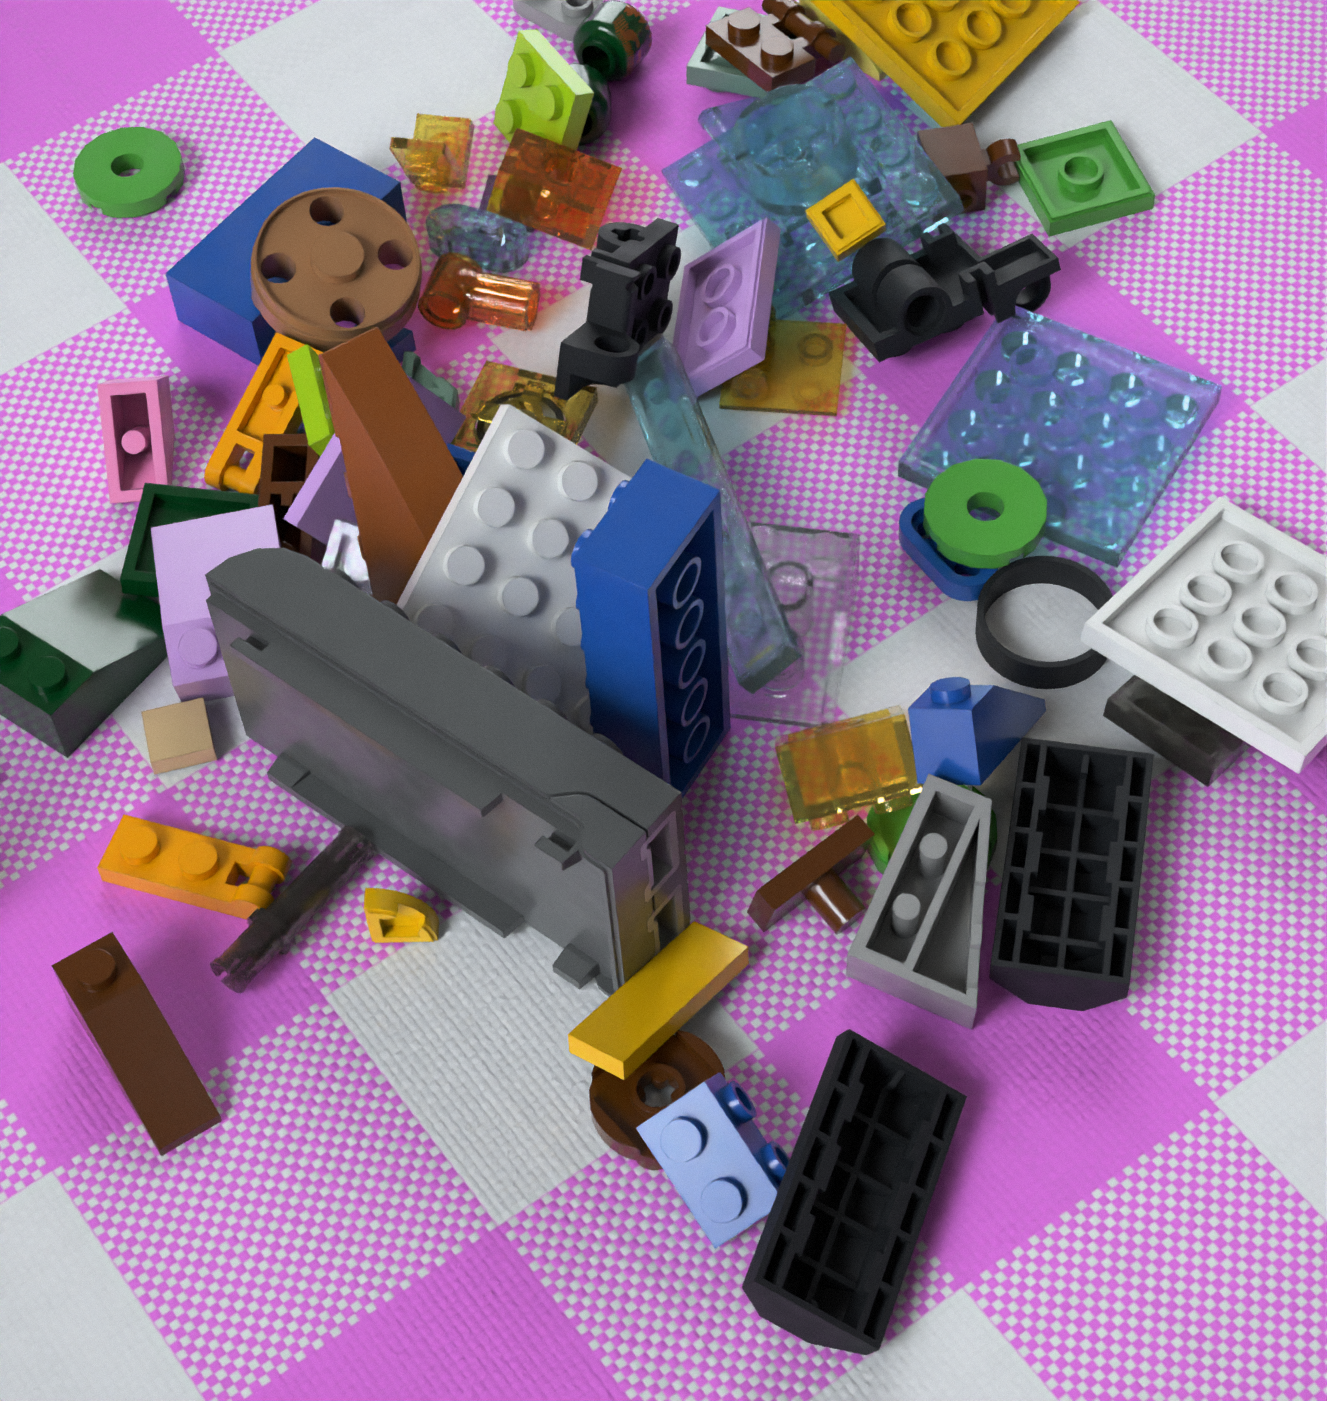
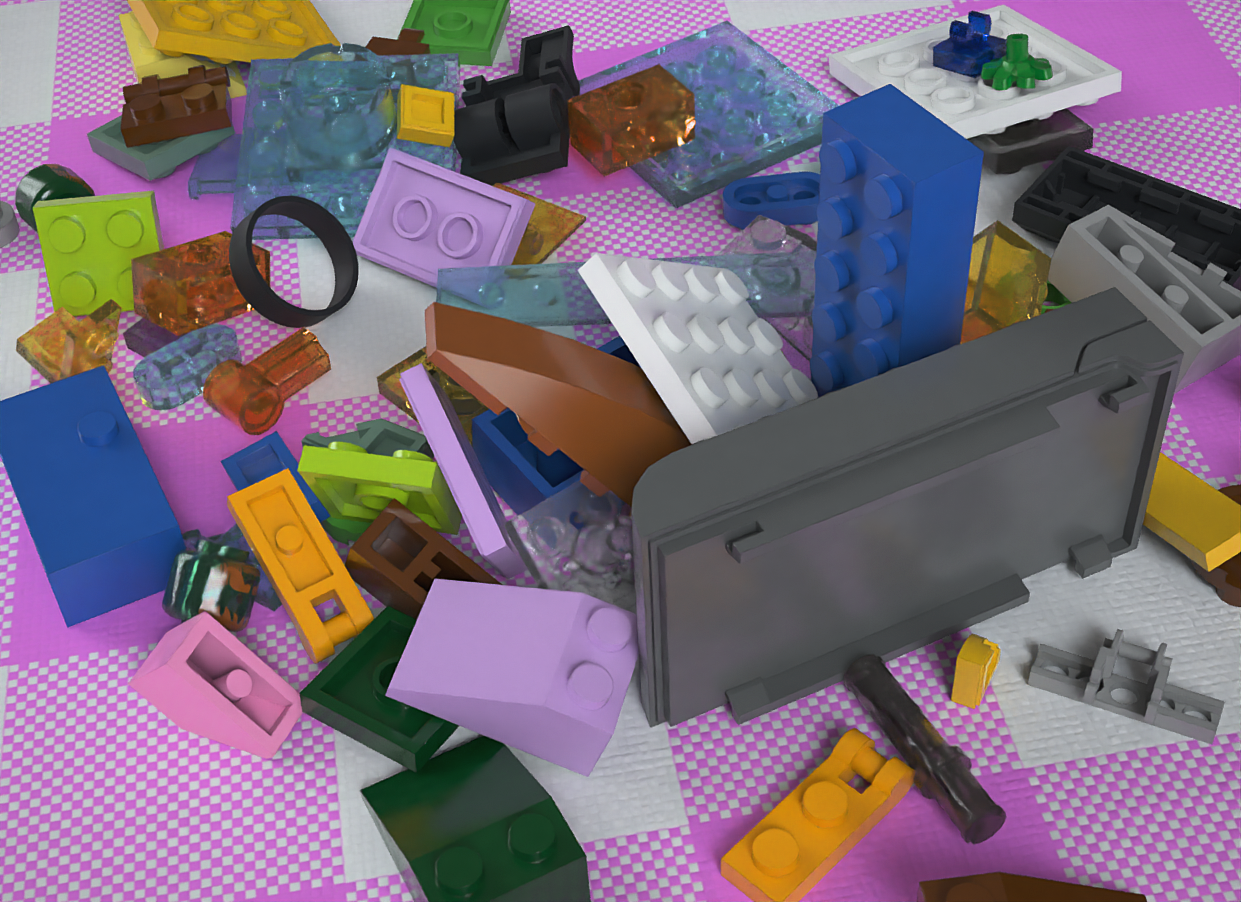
camera: 65 degrees left, 10 degrees down
(178, 735) = (636, 784): tan tile -> none
(218, 377) = (213, 581): none -> head
(336, 268) = (190, 426): medium nougat piece -> none
(438, 1009) = (1153, 692): none -> light grey piece
(559, 272) = (329, 232): none -> black tyre
(625, 306) = (411, 258): black plate -> none
(957, 376) = (631, 119): none -> clear orange brick
(968, 729) = (1028, 199): blue slope -> none
(988, 485) = (746, 146): bright green tile -> none
(1243, 659) = (1016, 66): none -> green plant
(1264, 609) = (969, 46): none -> clear blue tile

